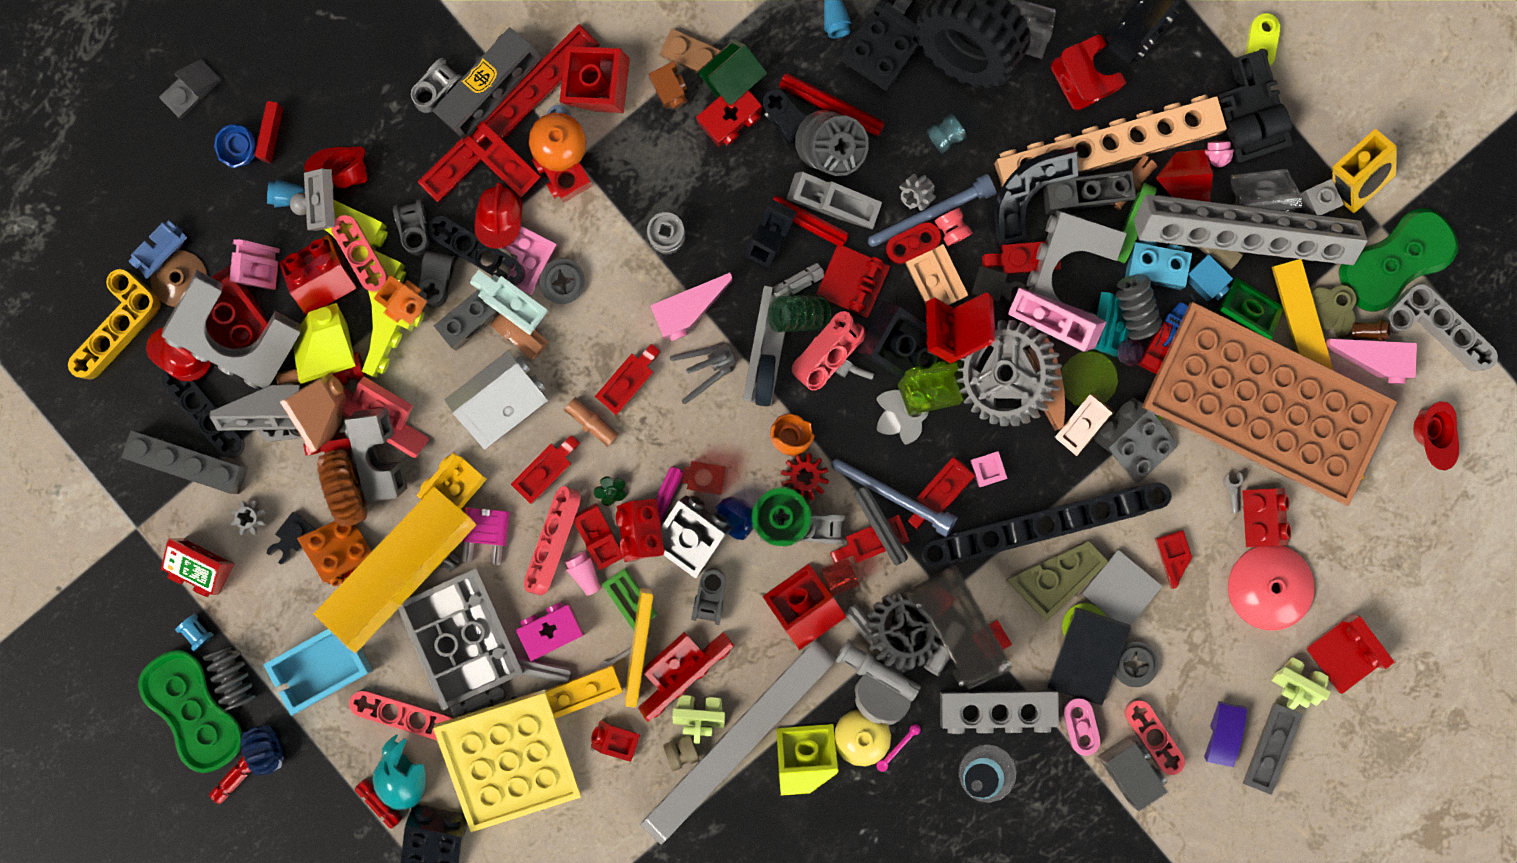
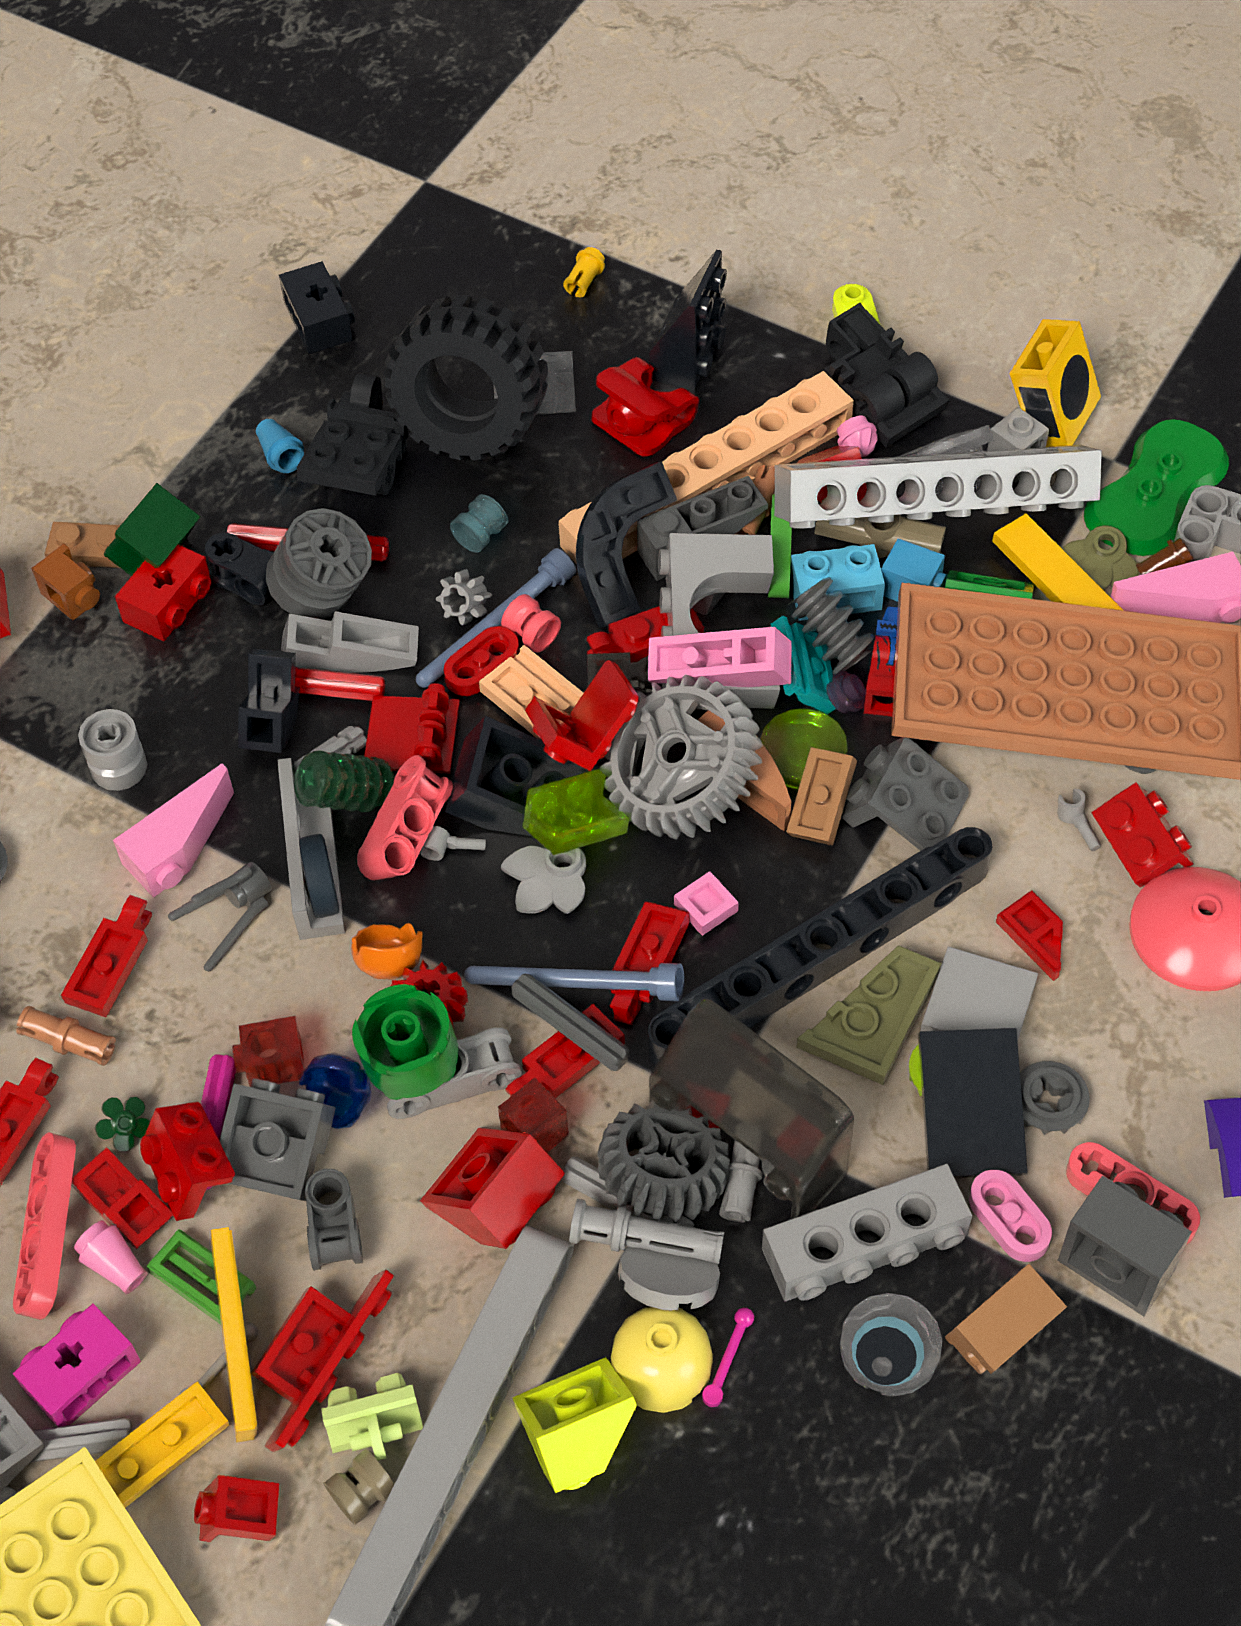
camera: 20 degrees left, 30 degrees down
(1053, 785) = (1006, 1321): none -> medium nougat hinge

